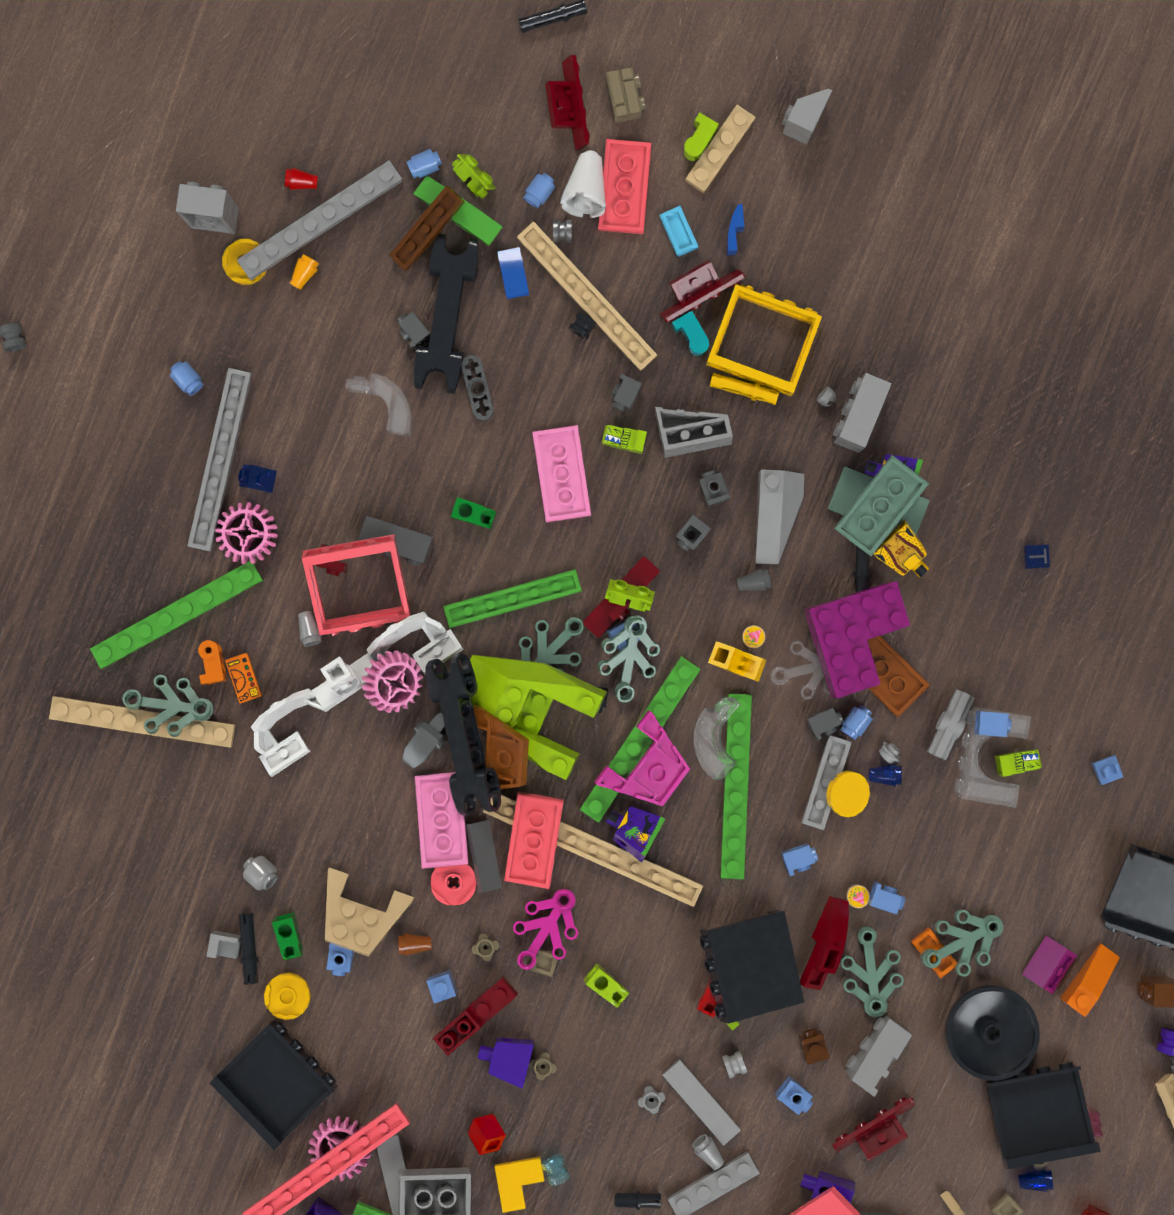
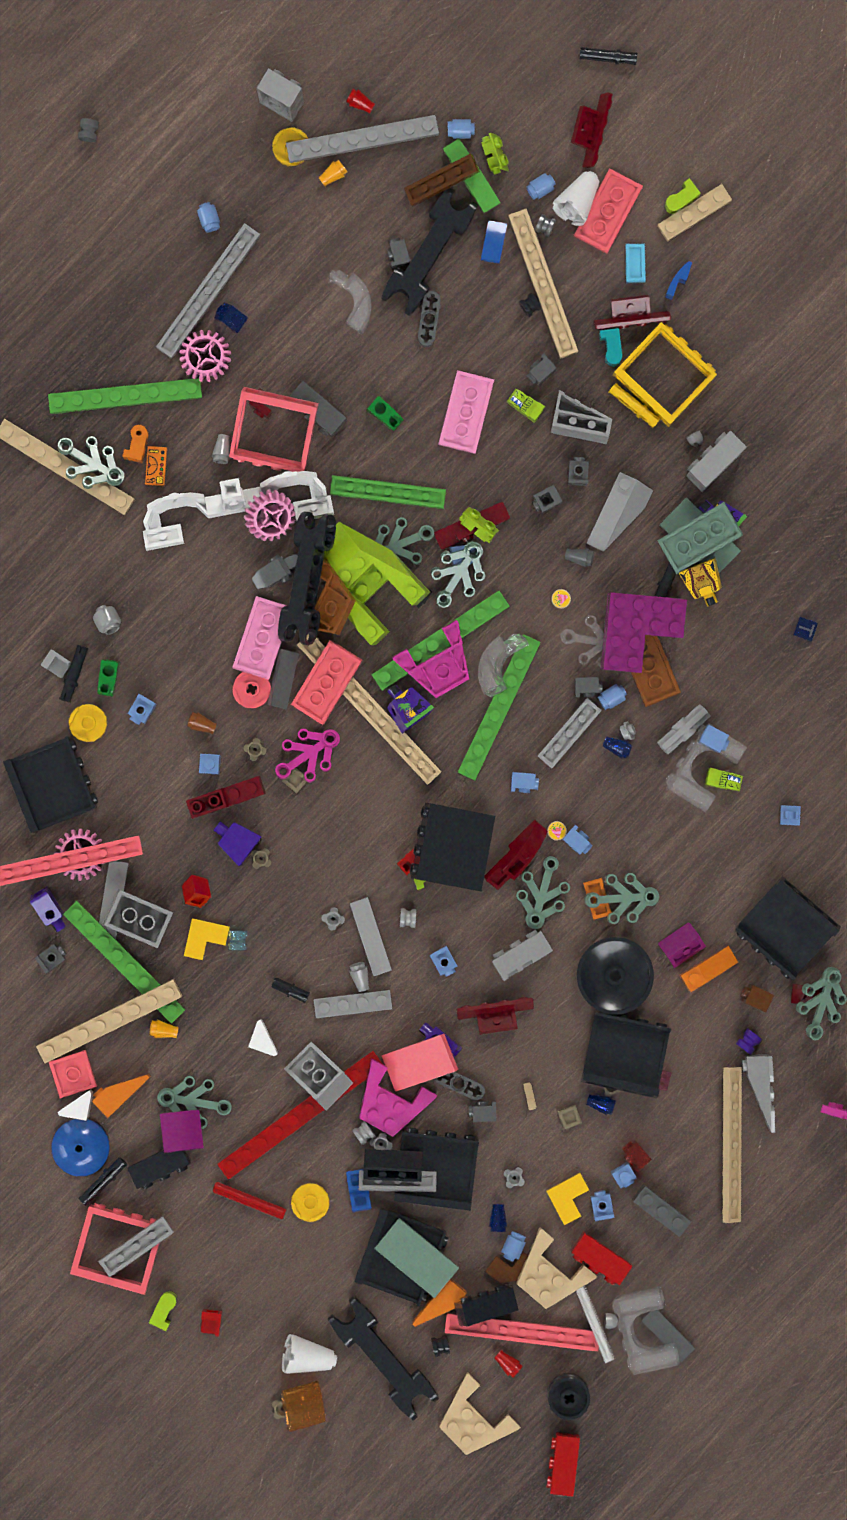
camera: 20 degrees right, 0 degrees up
(357, 925) = (164, 689): tan wing -> none
(606, 985) = (335, 817): lime leg -> none
(624, 94) = (637, 140): dark tan brick -> none
(737, 661) = (539, 611): yellow brick -> none
(804, 115) = (769, 214): light grey slope -> none
(813, 1046) = (474, 930): reddish brown bracket -> none
(848, 794) = (582, 748): yellow tile -> none

